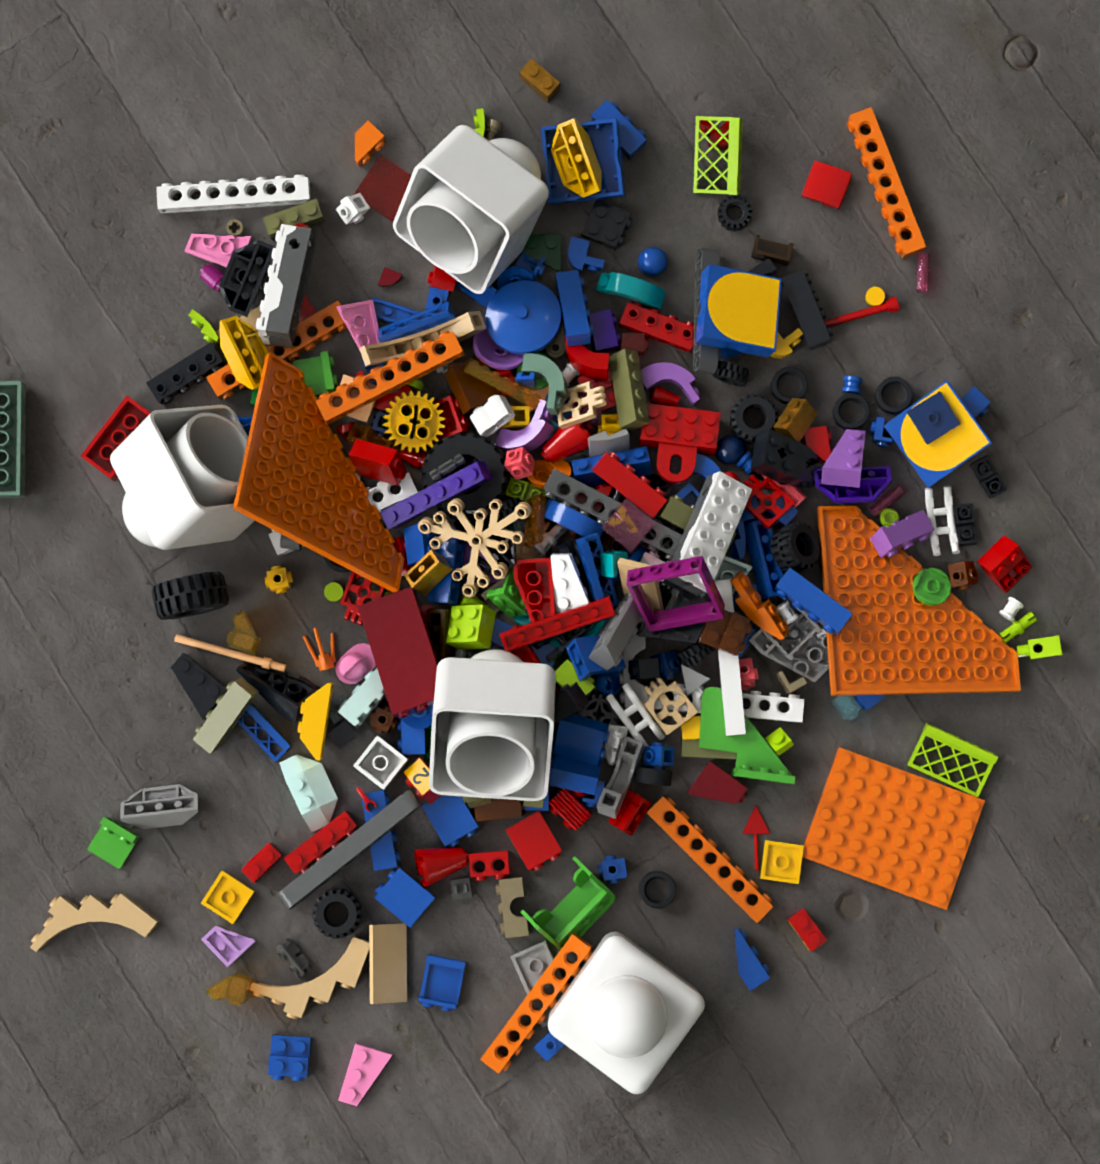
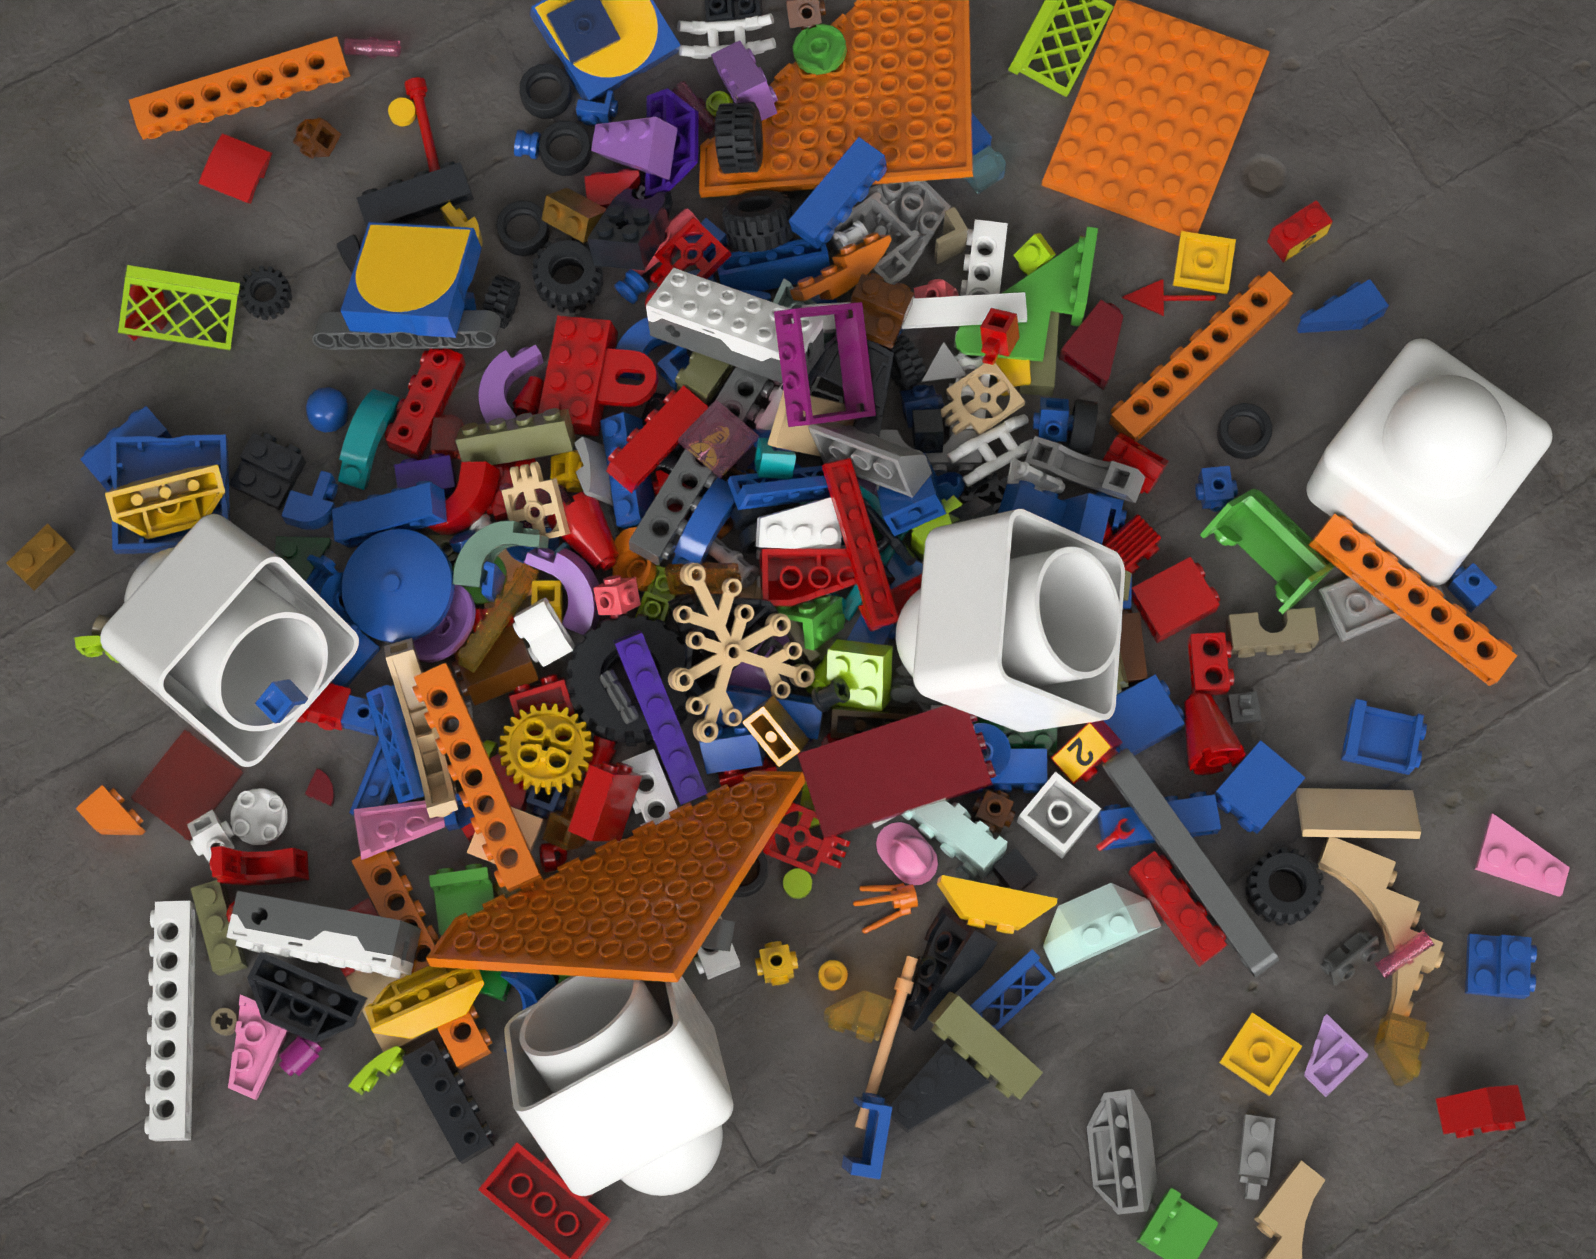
camera: 90 degrees left, 10 degrees down
(148, 641) = (875, 1137): none -> blue panel
(164, 894) = (1255, 1154): none -> light grey hinge
(190, 595) = (799, 1091): black tyre -> none
(191, 1041) = (1482, 1108): none -> red brick
(262, 862) = (1208, 998): red brick -> none
(274, 617) = (832, 975): none -> yellow tile
(290, 991) = (1404, 954): none -> clear pink pin
(333, 241) = (259, 868): none -> red arch
(369, 238) = (258, 816): none -> white dish
(428, 245) = (280, 699): none -> blue panel
(452, 604) = (830, 695): none -> black bush
(559, 359) = (460, 539): none -> blue tile
(710, 715) = (998, 334): none -> red brick
(730, 450) = (614, 307): dark blue hair -> none
(775, 251) = (323, 250): dark brown panel -> none
(849, 238) = (316, 137): none -> reddish brown brick
(852, 530) = (739, 137): none -> black tyre

